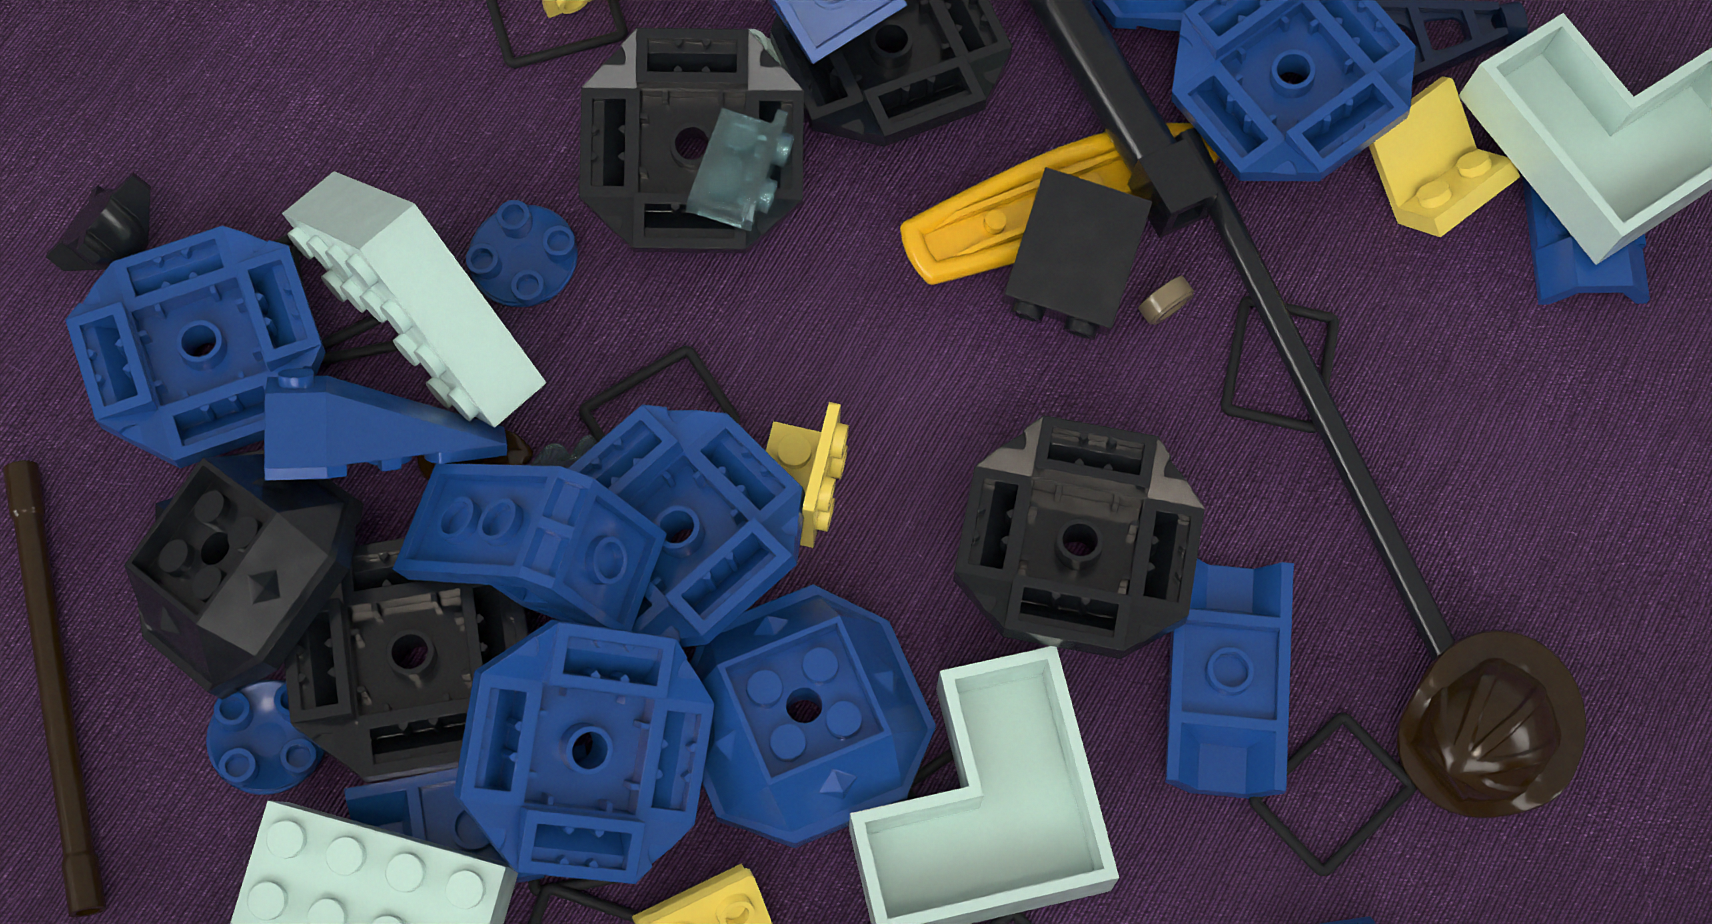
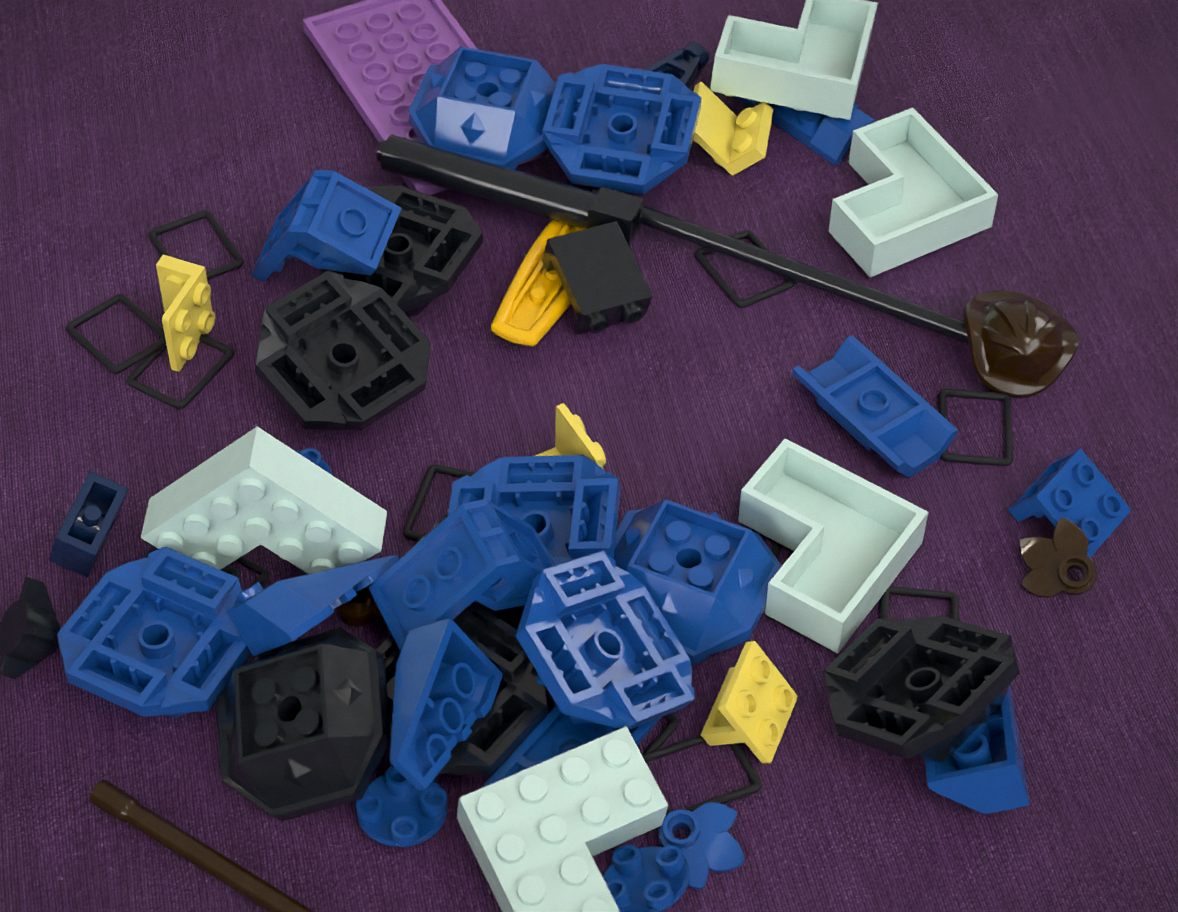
camera: 40 degrees left, 20 degrees down
(269, 148) = (88, 524): none -> dark blue brick
(356, 663) = (438, 696): none -> blue wedge
(738, 168) = (390, 338): clear light blue bracket -> none
(1091, 488) = (740, 389): black piece -> none
(1166, 300) = (662, 274): dark tan tile -> none
(1580, 448) = (915, 198): none -> light aqua piece

